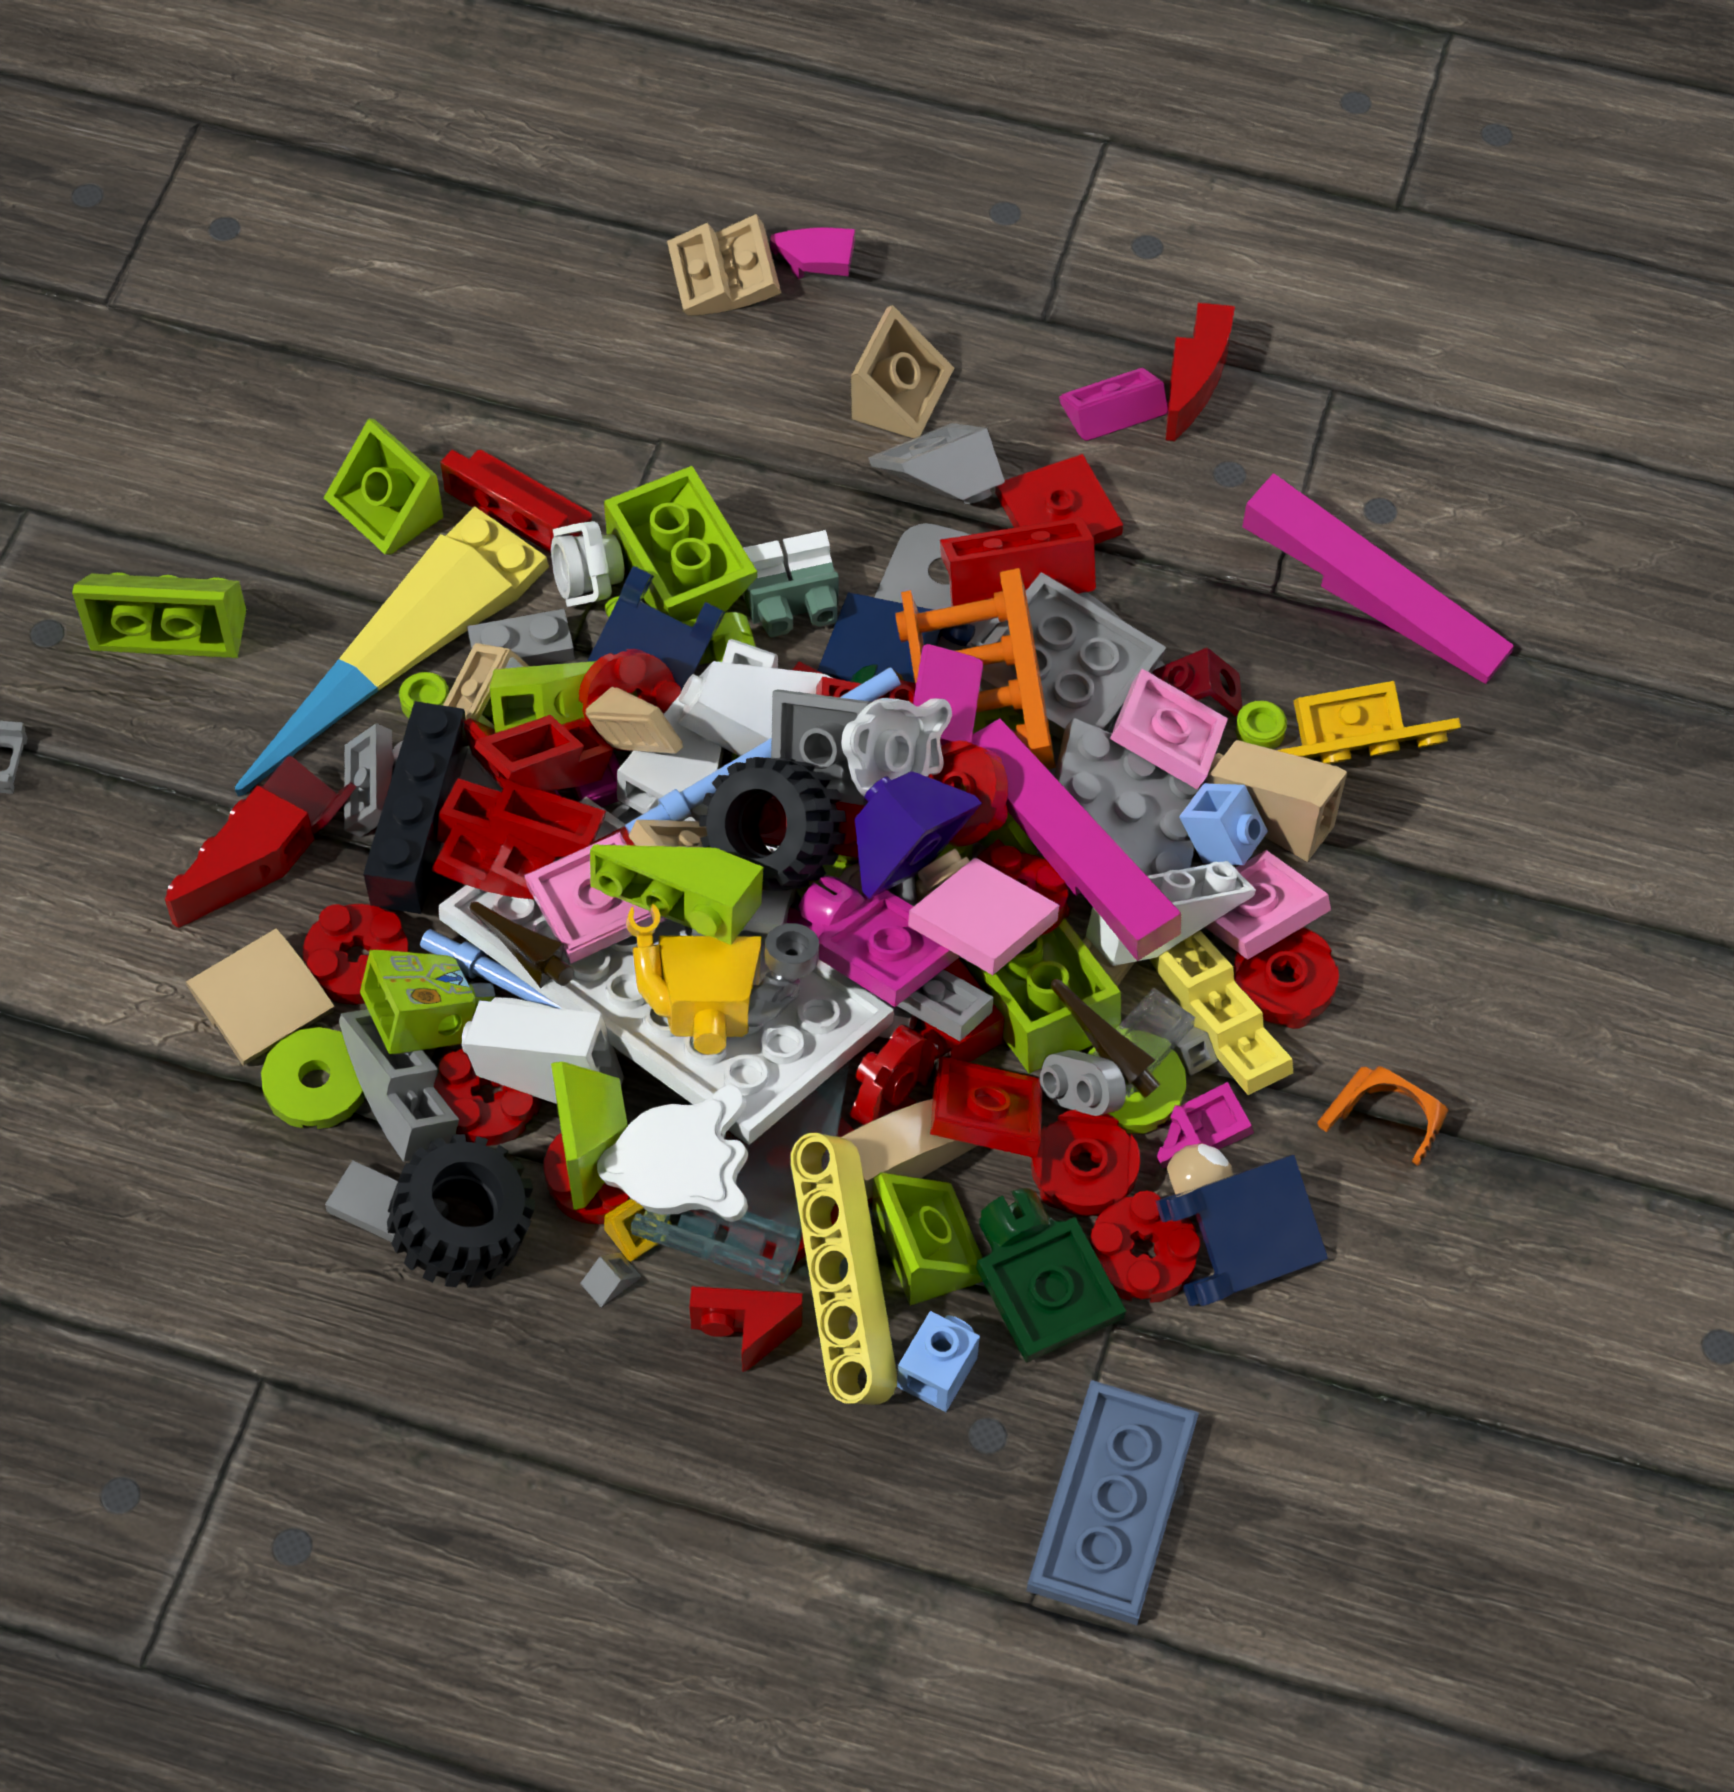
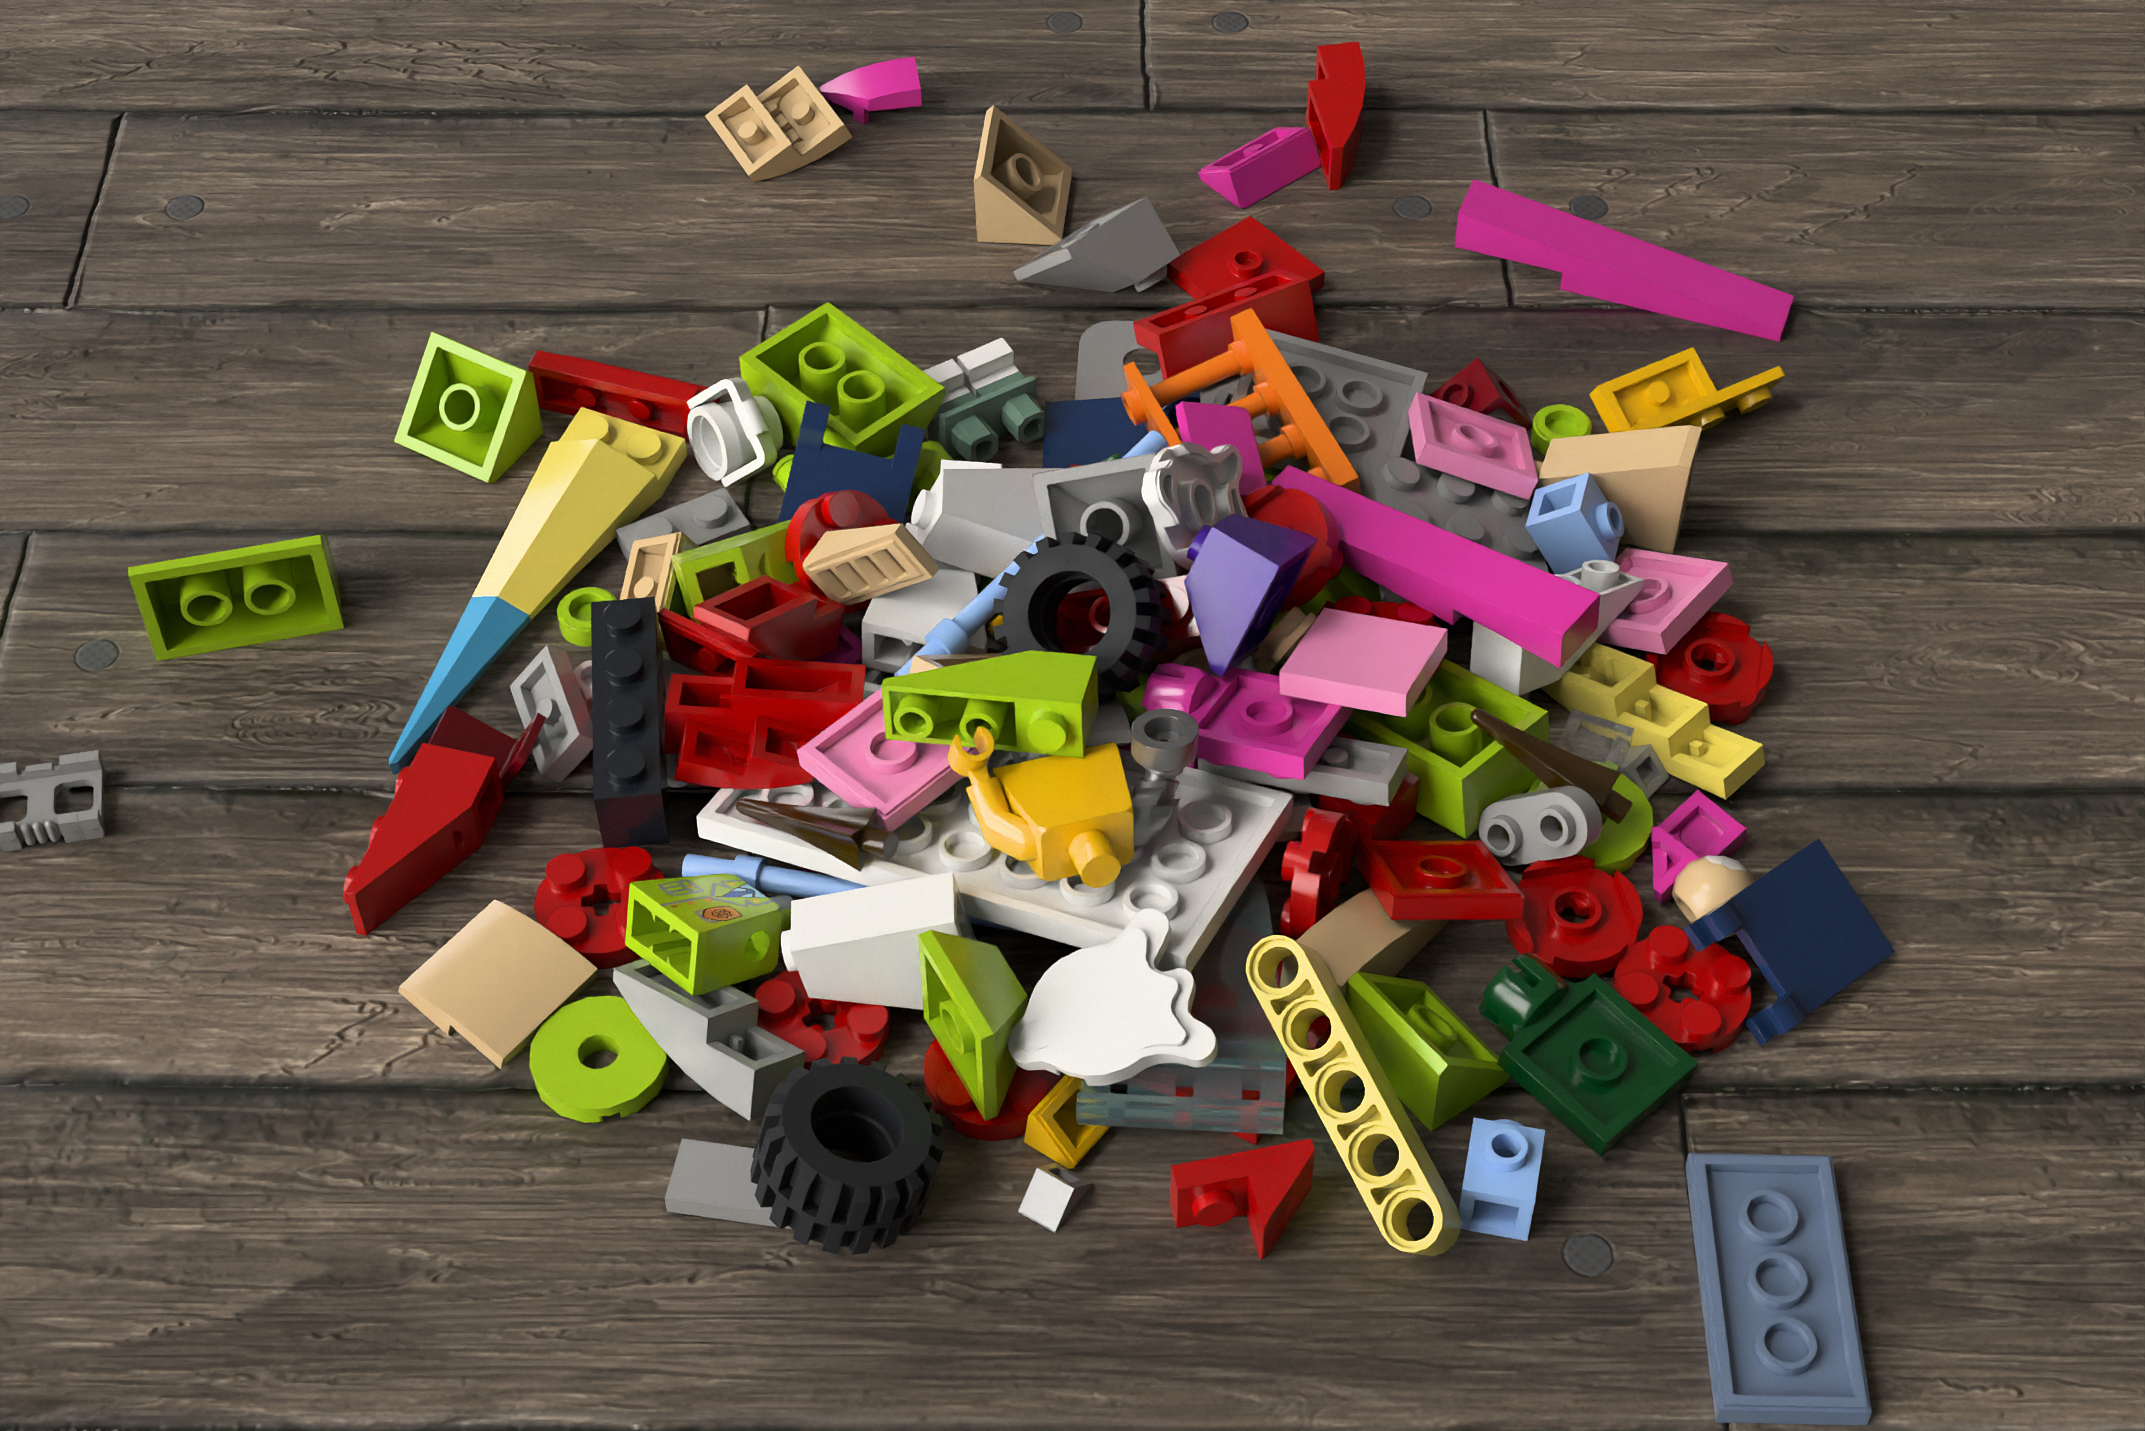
camera: 15 degrees left, 10 degrees down
(1385, 1080) = (1878, 745): orange helmet -> none

